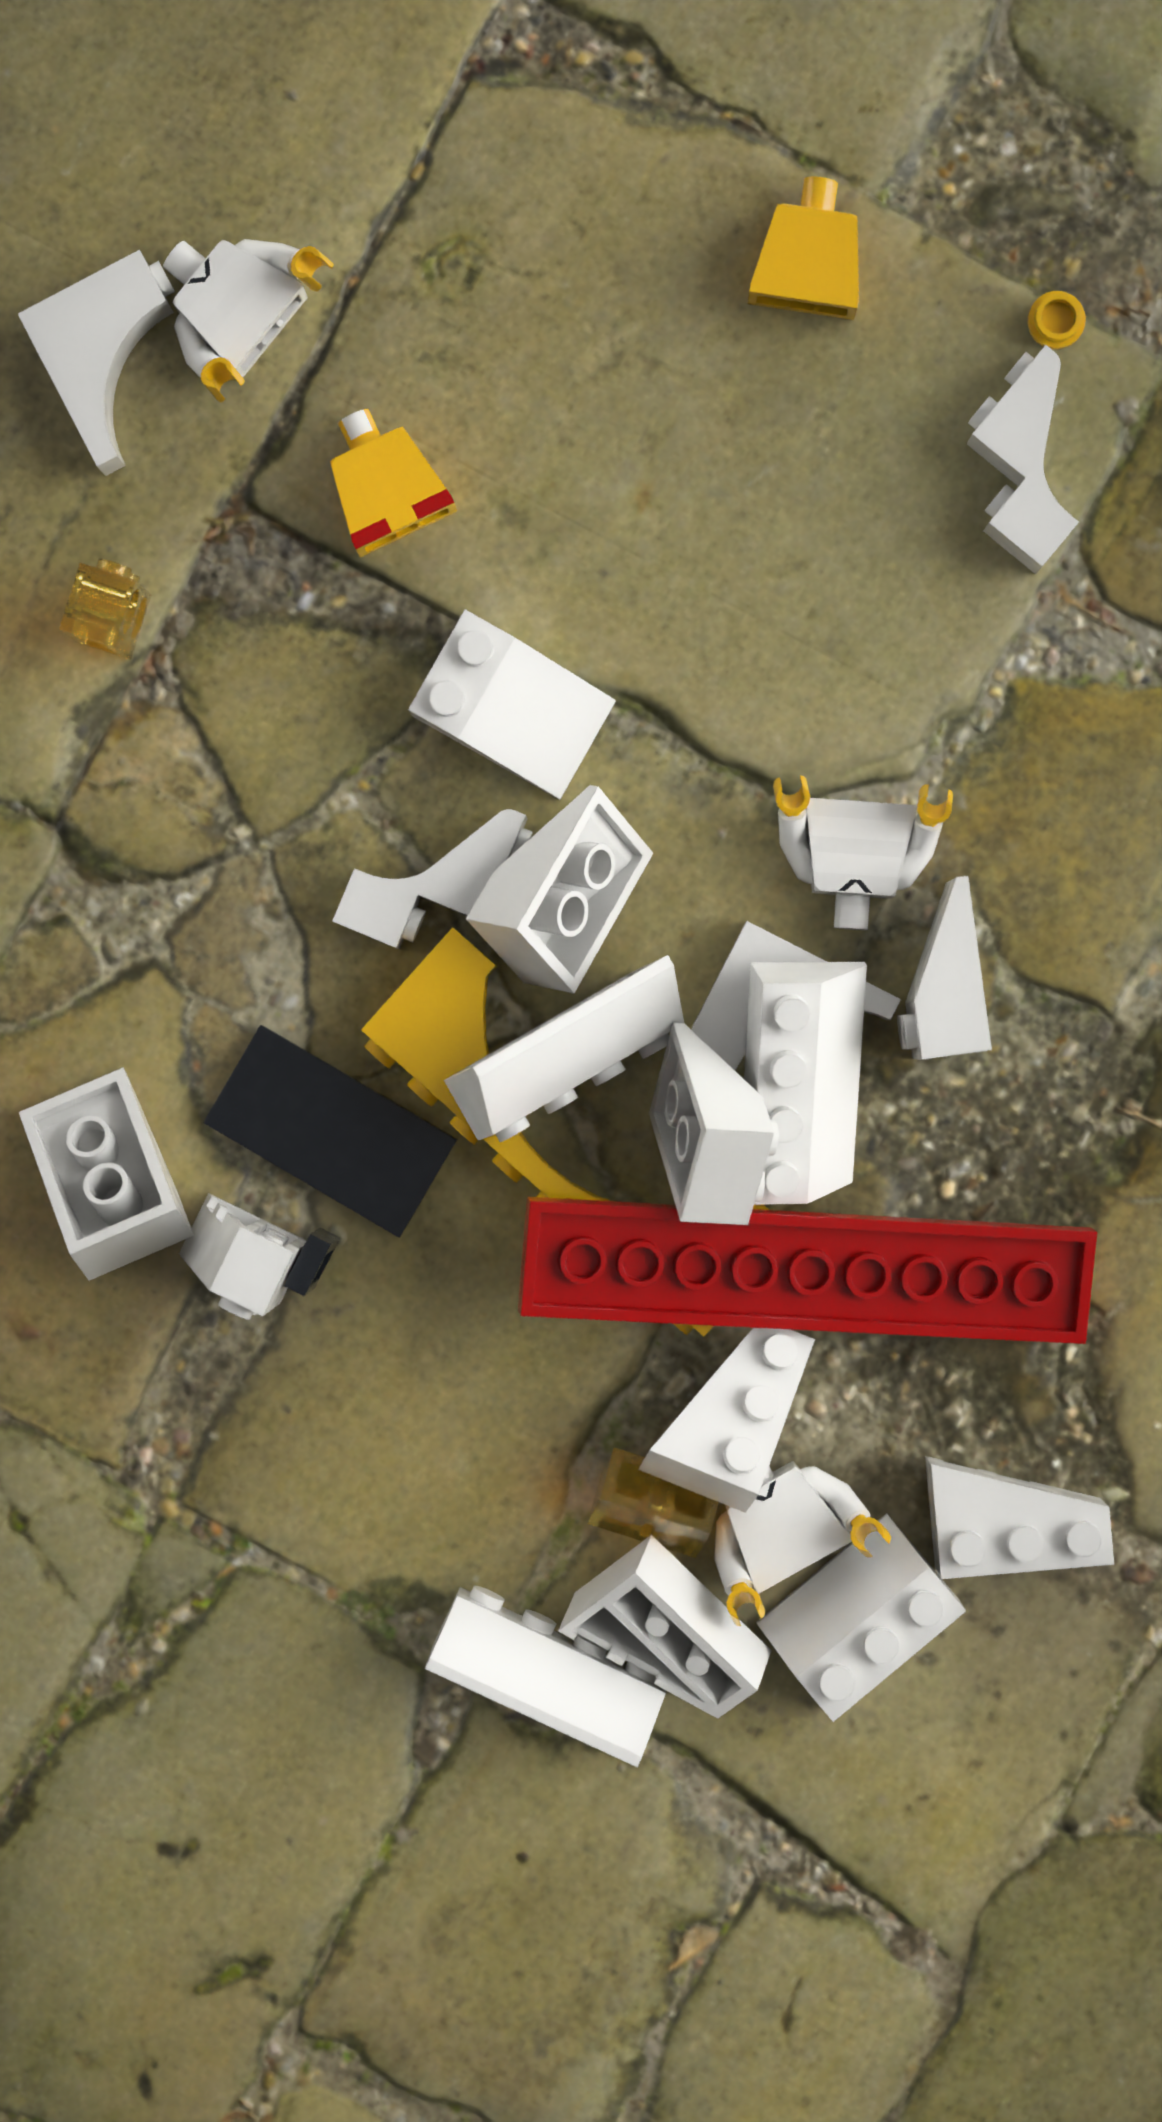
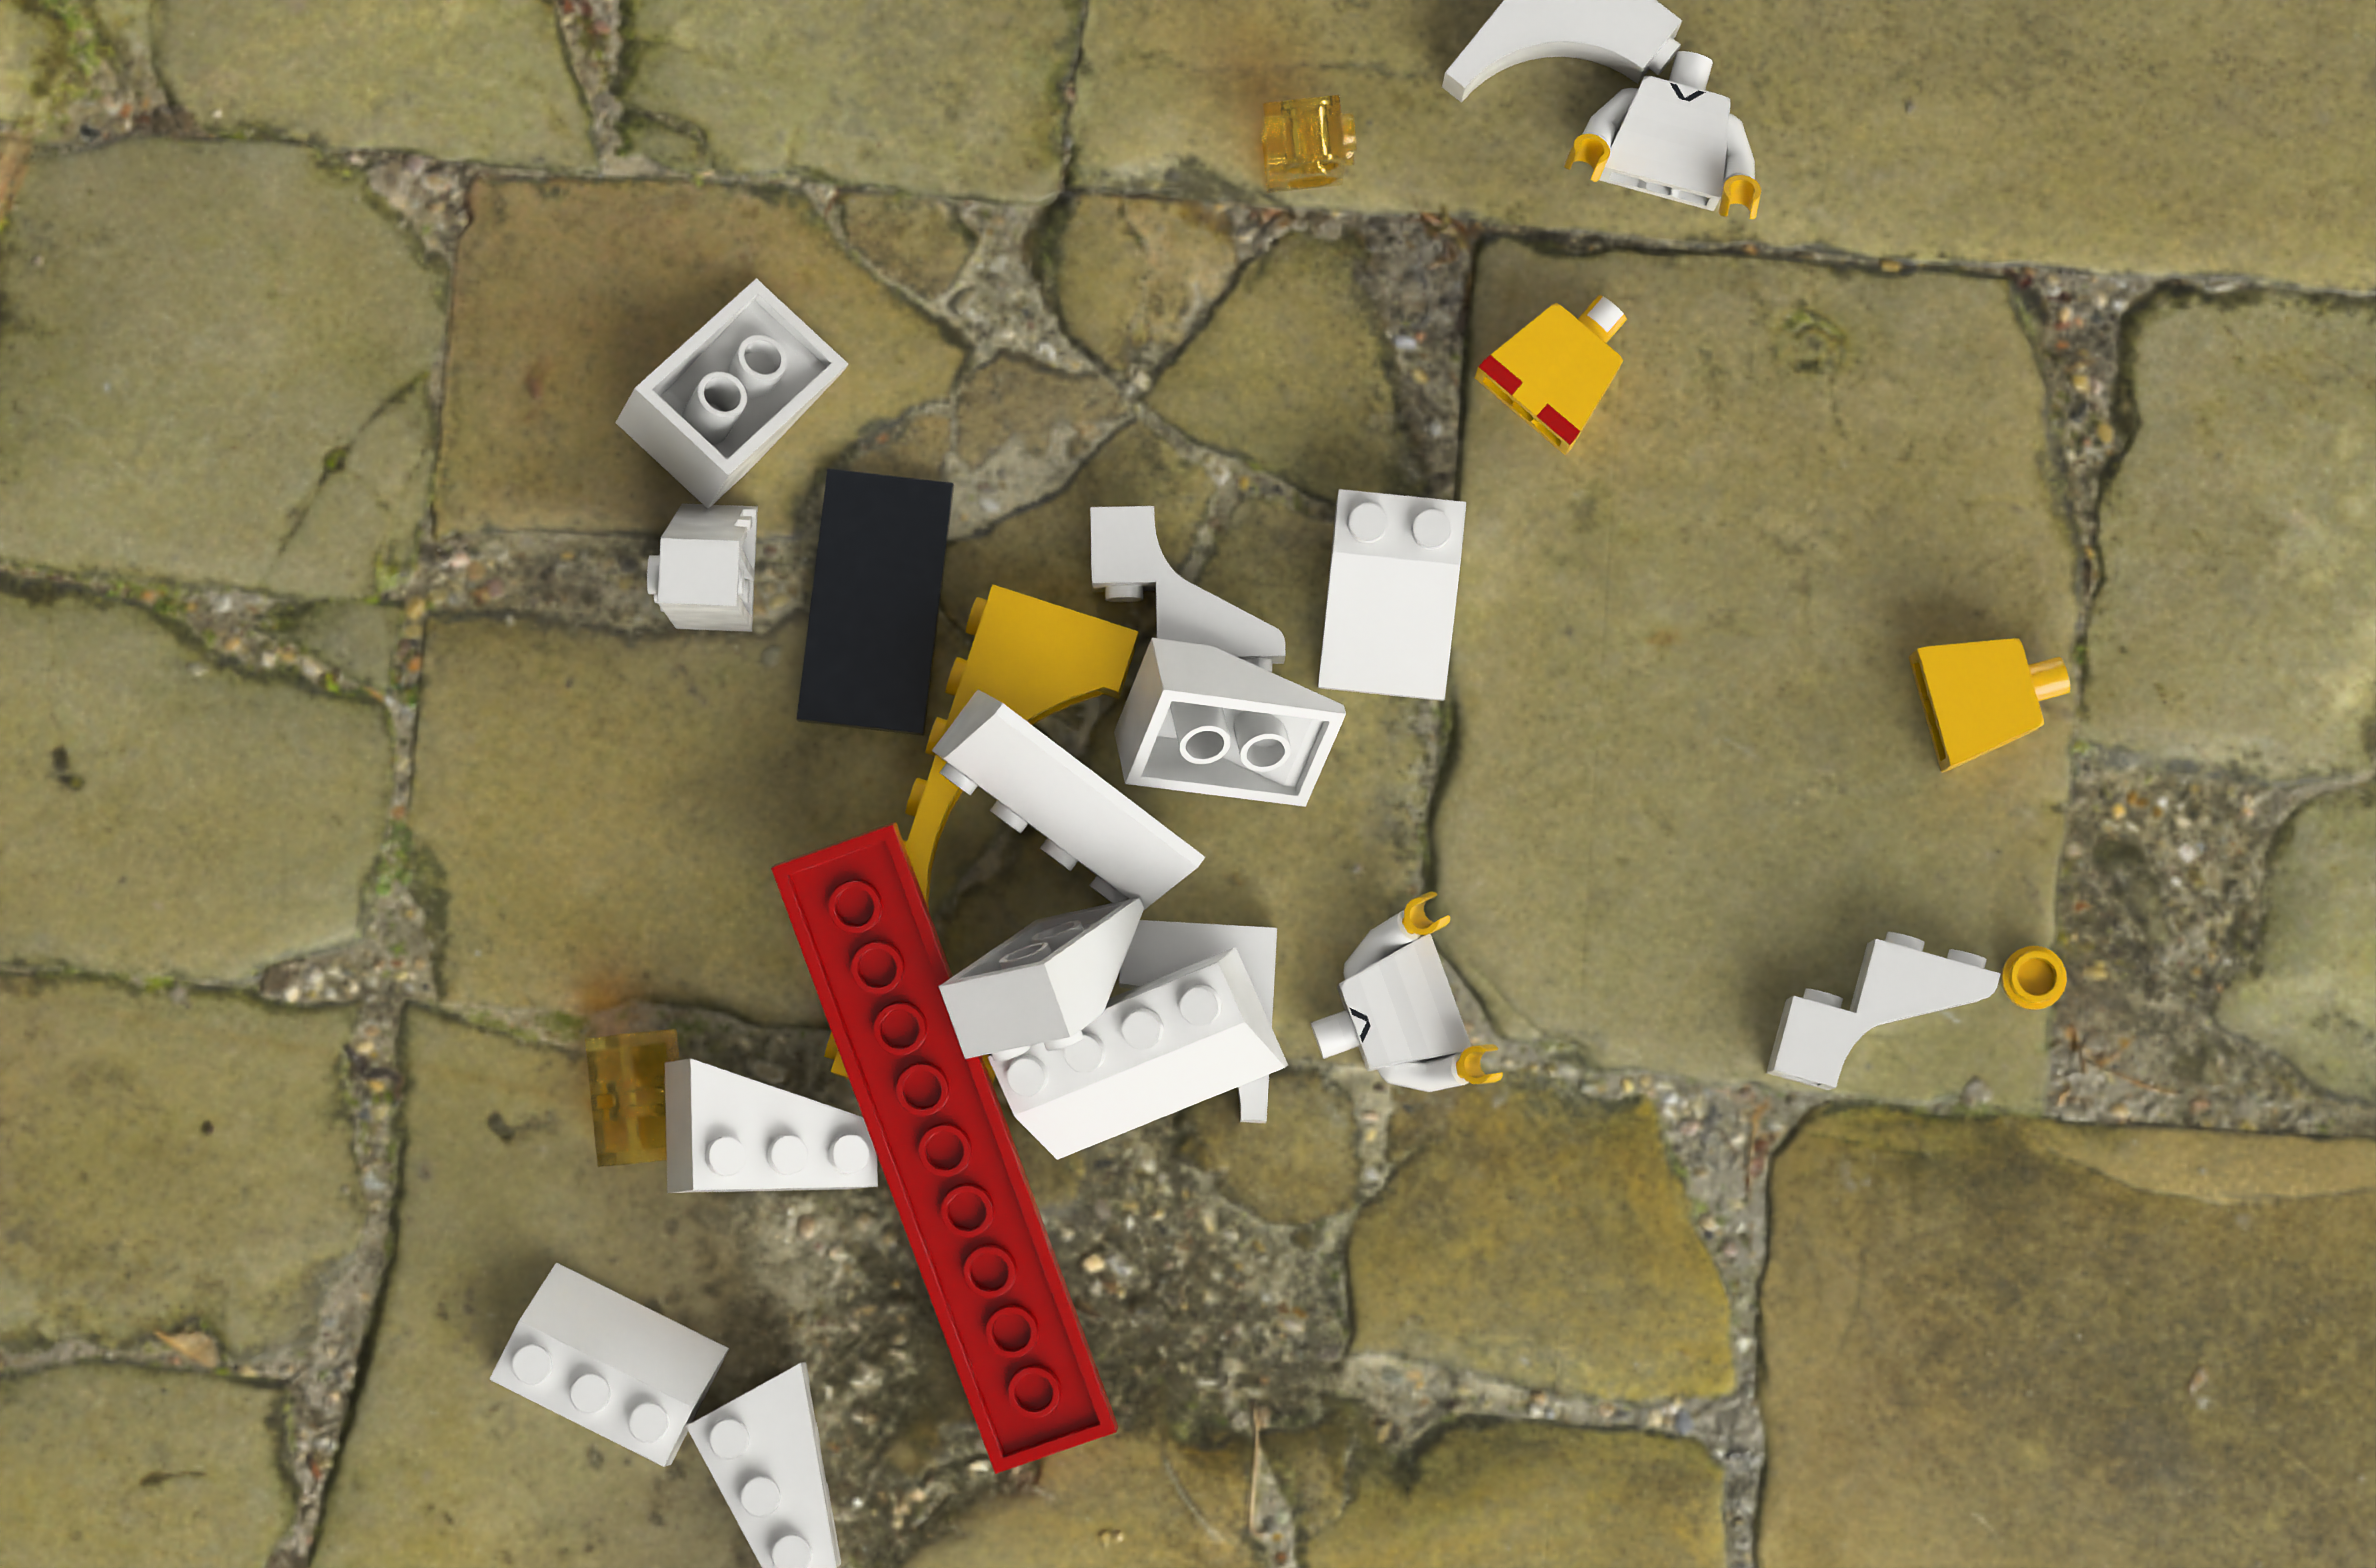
camera: 65 degrees right, 5 degrees down
(312, 1261) = (733, 638): black tile -> none
(546, 1674) = (412, 1064): white slope -> none
(670, 1626) = (514, 1170): white wedge -> none
(787, 1528) = (669, 1244): white torso -> none
(947, 991) = (1293, 1163): white slope -> none

